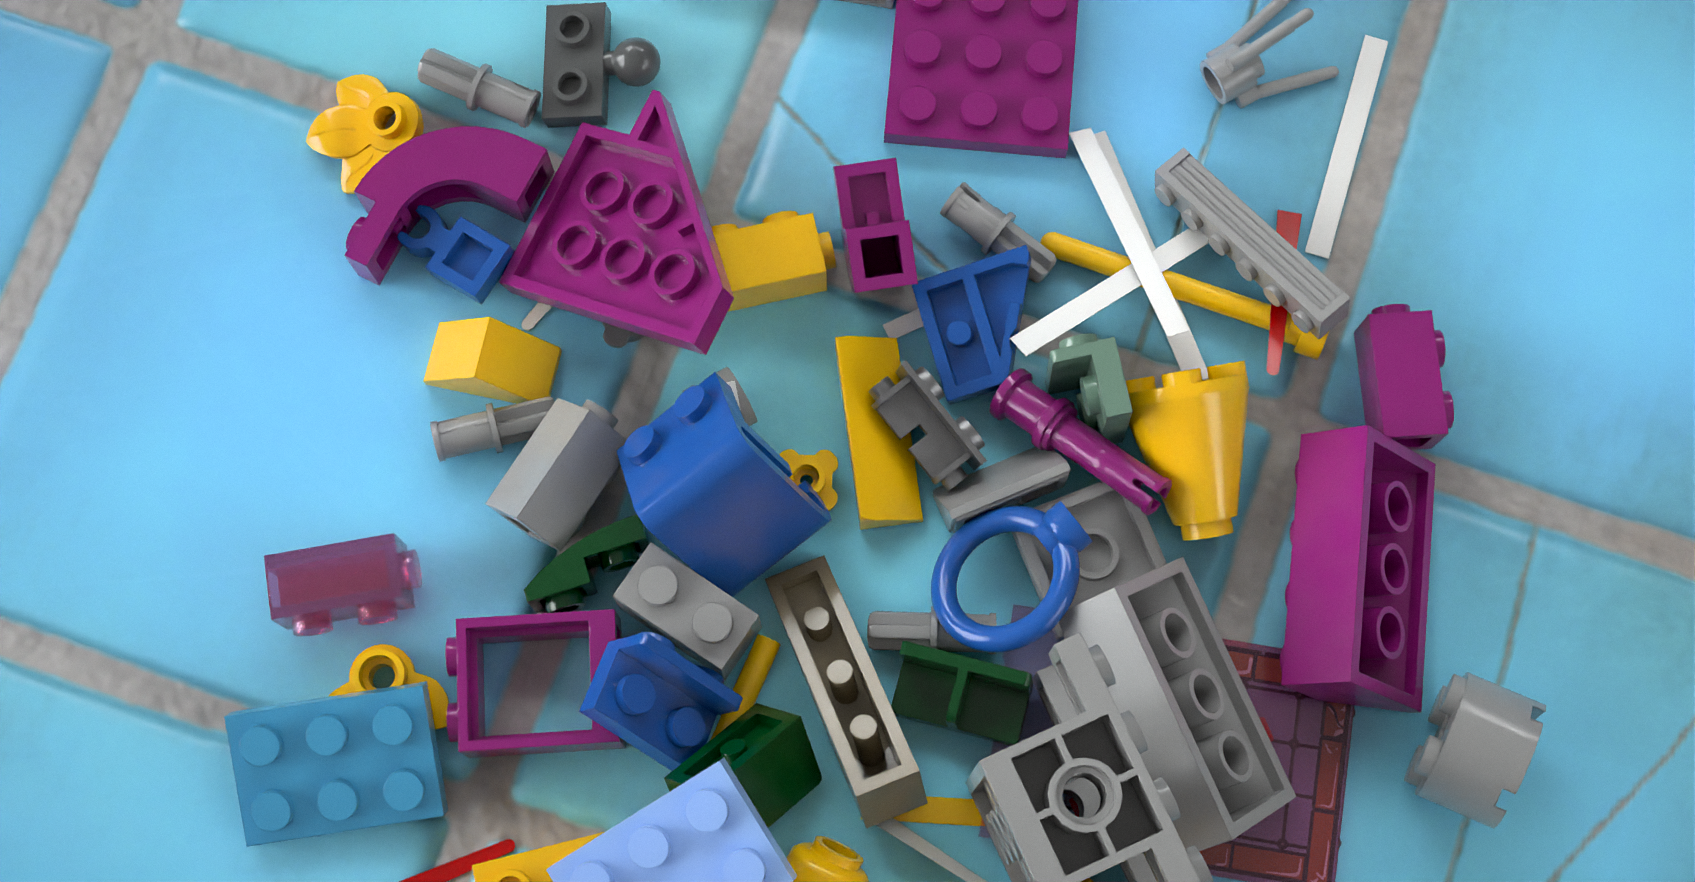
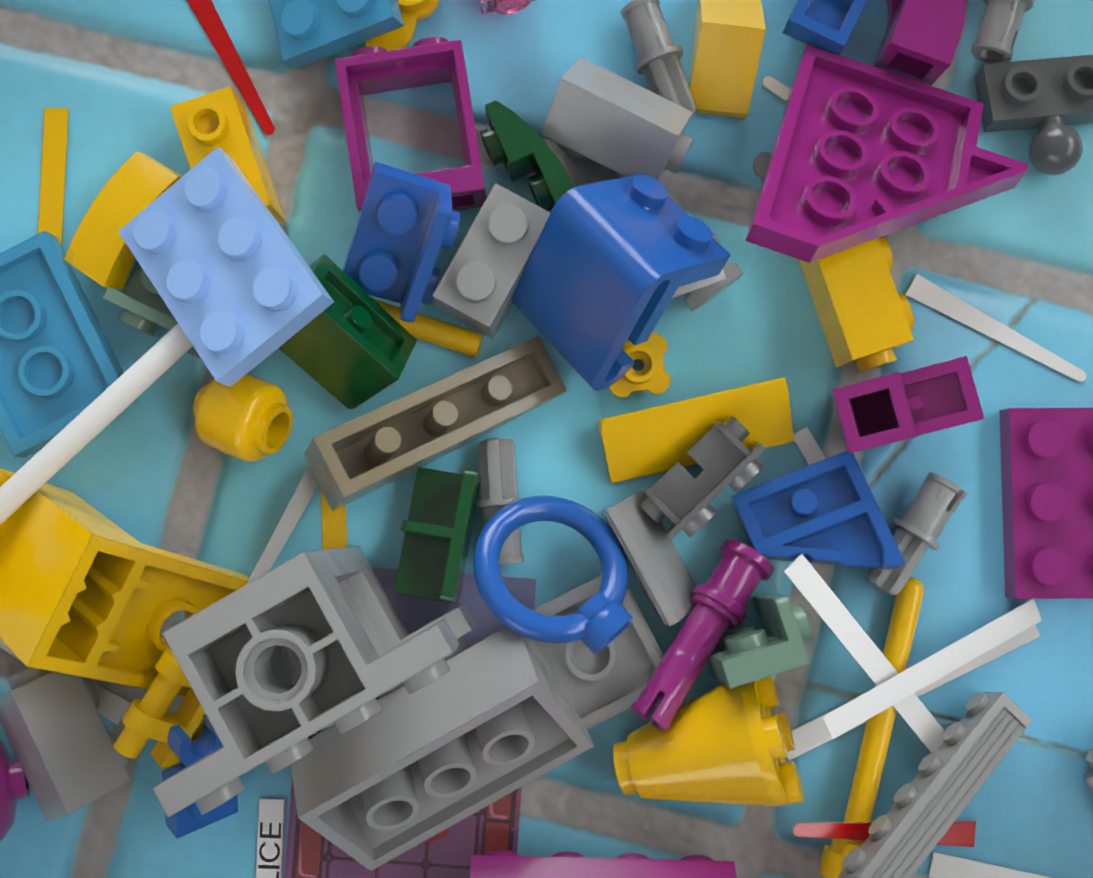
camera: 85 degrees right, 10 degrees up
(780, 169) = (959, 310): none -> white sticker

